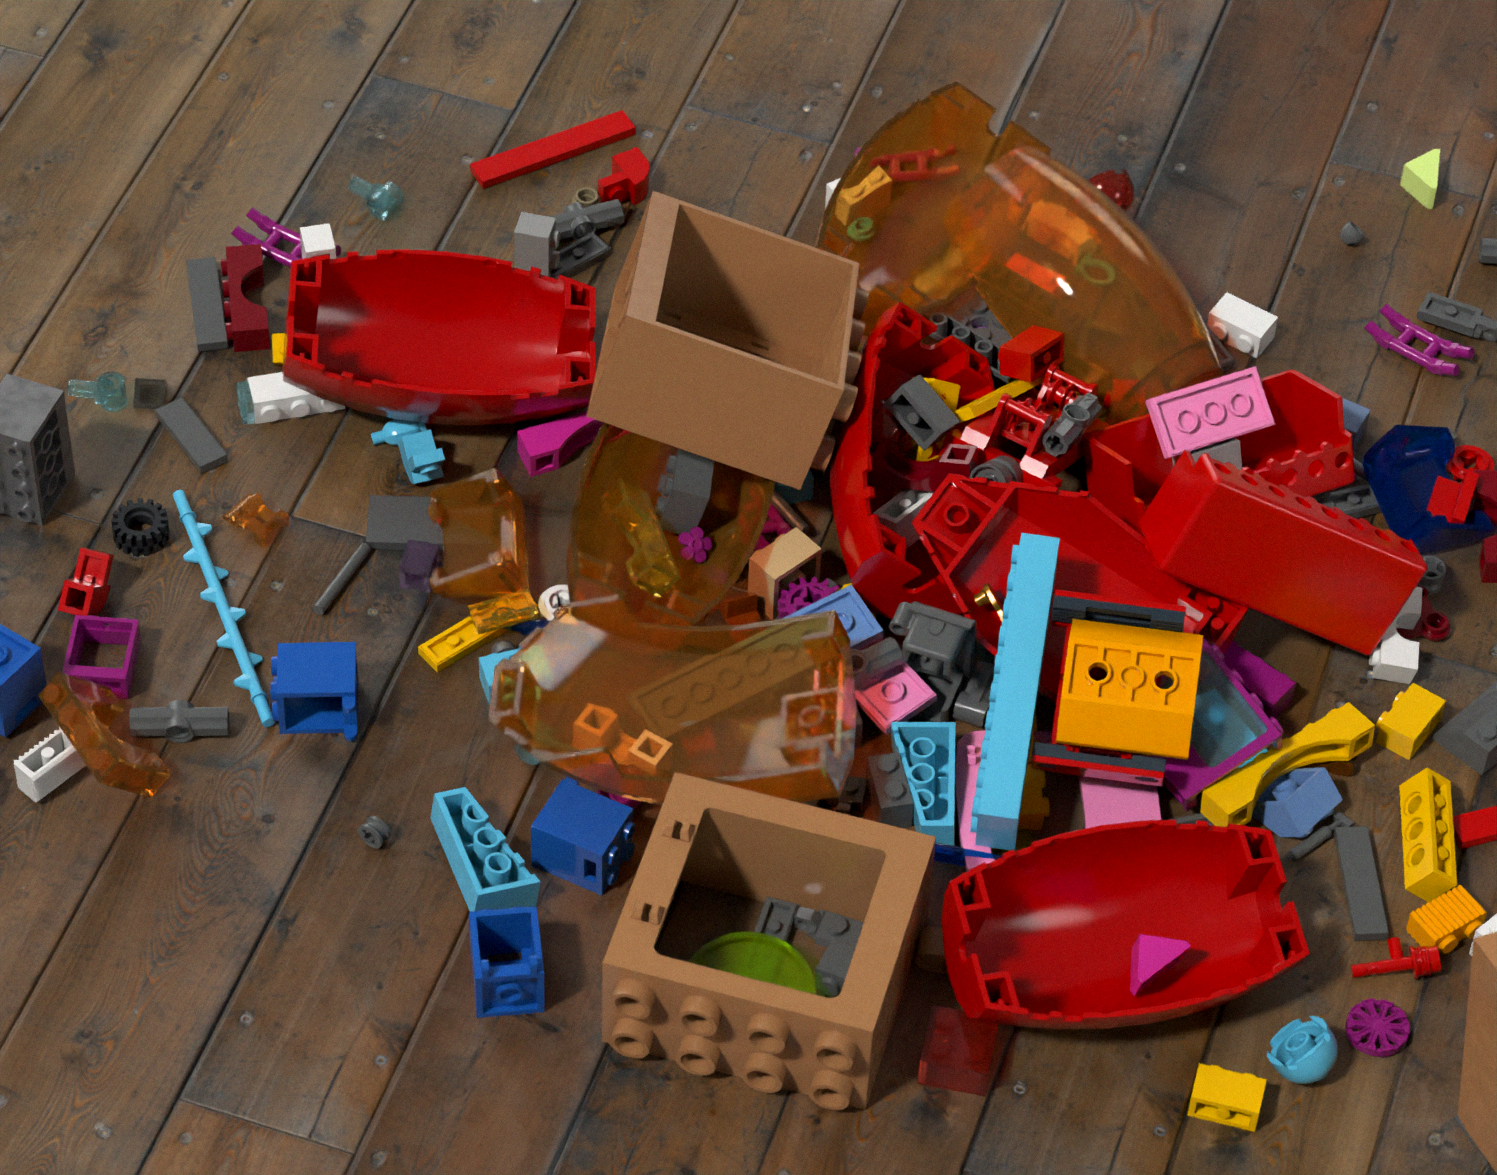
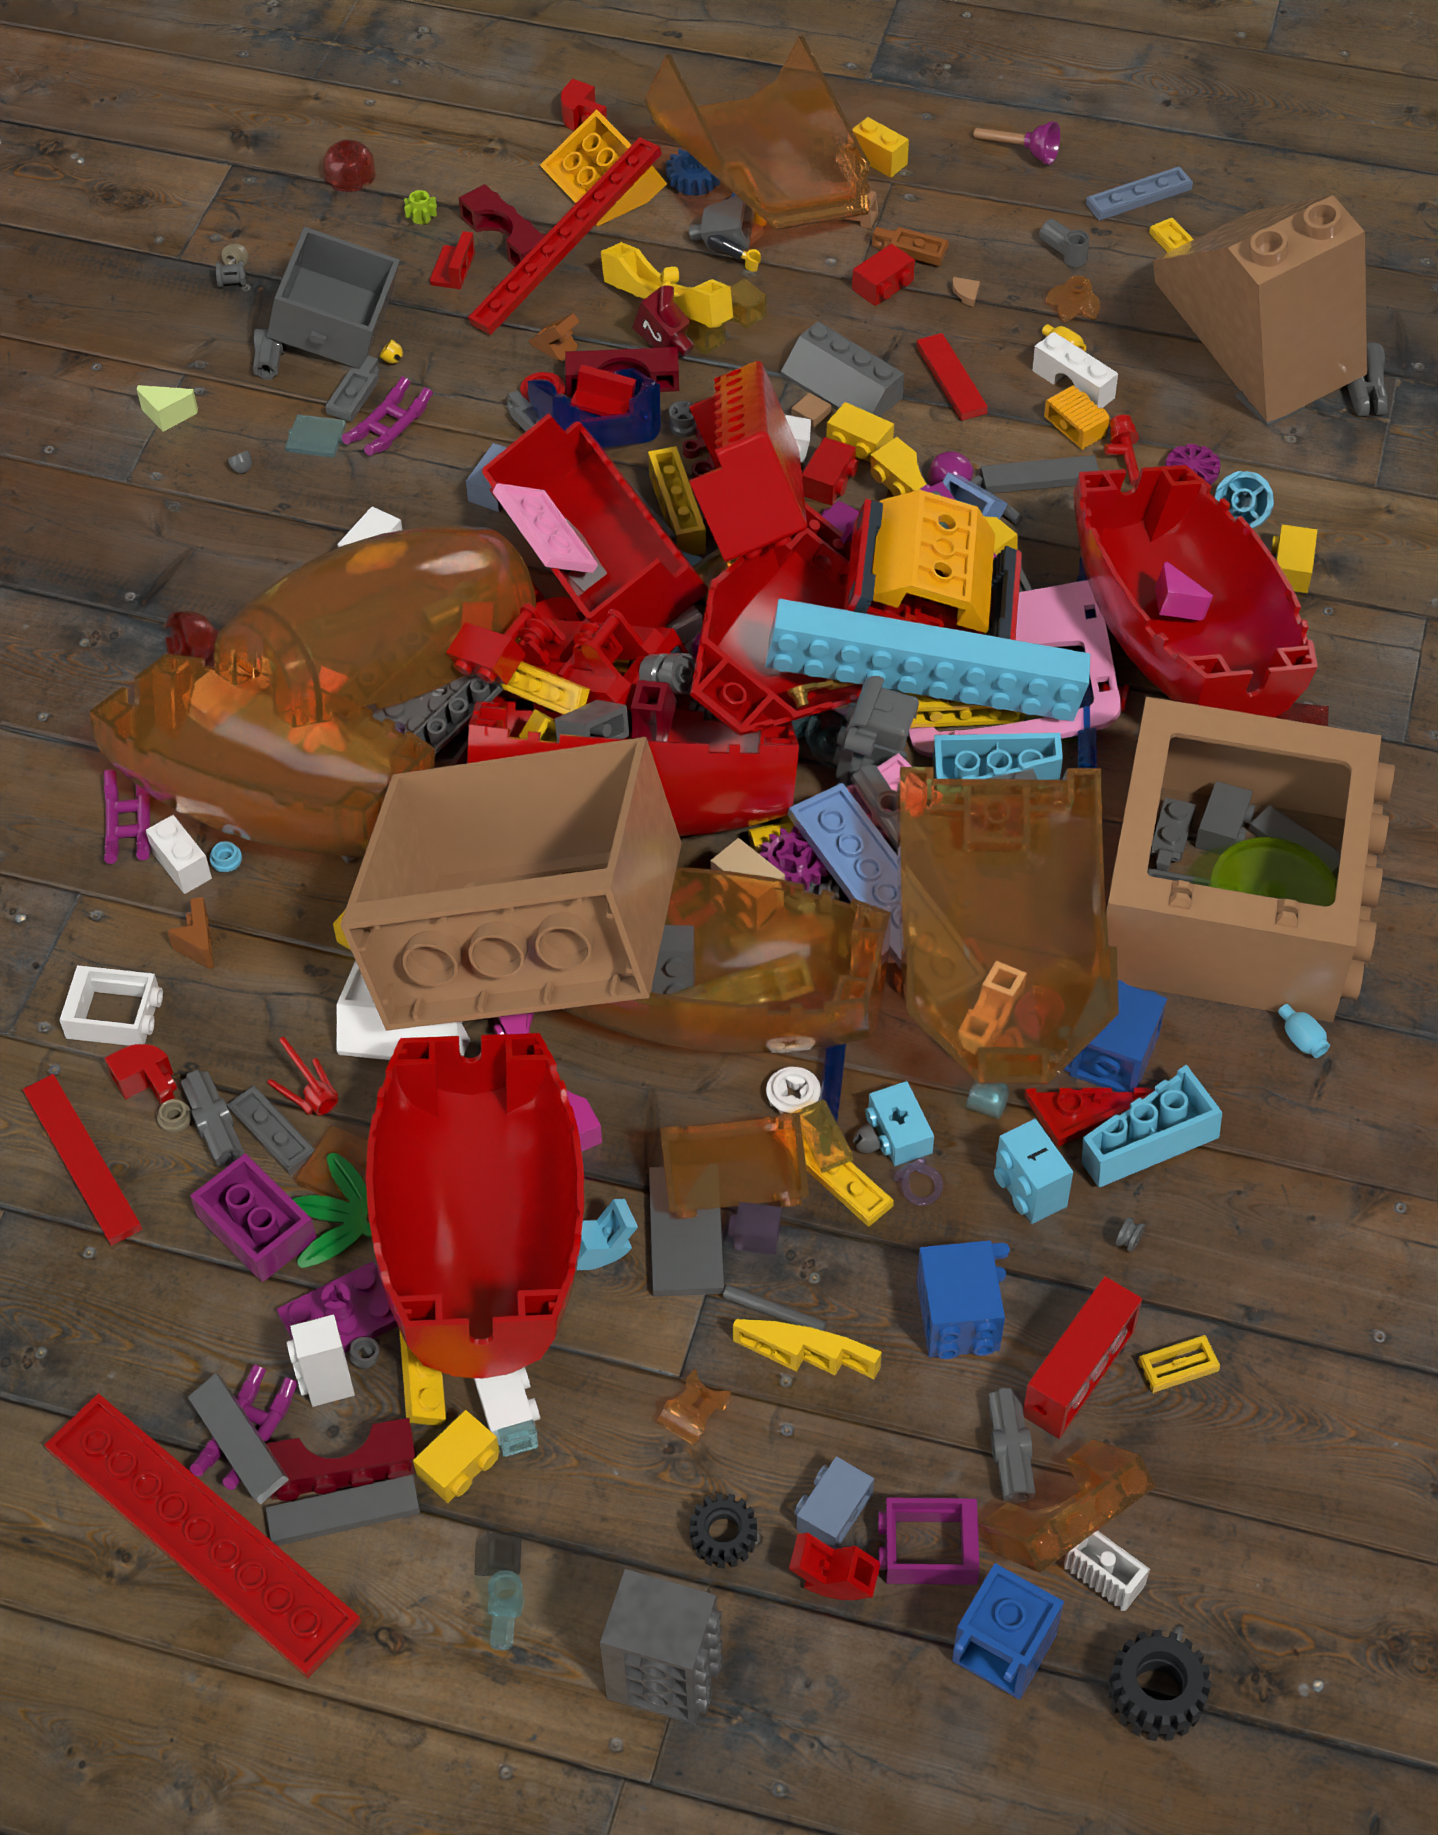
camera: 90 degrees left, 5 degrees up
(147, 597) = (834, 1503): none -> sand blue brick
(191, 435) = (565, 1498): dark grey tile -> none
(199, 222) = (204, 1535): none -> red plate
(229, 615) = (817, 1436): medium azure plant -> none
(232, 361) = (457, 1457): none -> yellow brick
(245, 767) = (1081, 1357): none -> red brick
(245, 877) = (1151, 1374): none -> yellow tile
(266, 230) = (238, 1438): none -> dark grey tile
(299, 584) = (793, 1343): none -> yellow slope
(380, 198) = (167, 1329): clear light blue axle -> none
(441, 754) = (1033, 1171): none -> medium azure brick
(460, 676) = (919, 1165): none -> clear purple piece
(475, 229) = (253, 1217): none -> magenta brick
(506, 985) = (1285, 1088): blue container -> none
(514, 809) = (1078, 1112): none -> red wing
(536, 243) = (280, 1138): light grey brick -> none
(579, 1004) = (1304, 1032): none -> medium azure plant
(596, 279) = (319, 1096): none -> red plant
(689, 136) = (110, 981): none -> white window
(694, 545) = (714, 966): magenta plant -> none
(765, 211) = (195, 938): none -> dark orange slope
(1071, 424) = (587, 609): dark grey piece -> none
(1351, 683) = (829, 471): none -> red brick
(1361, 800) = (949, 462): none -> magenta hair
(1397, 290) = (315, 435): none -> clear light blue piece
(1428, 835) = (949, 413): yellow brick -> none
(1453, 688) = (811, 408): none -> medium nougat tile

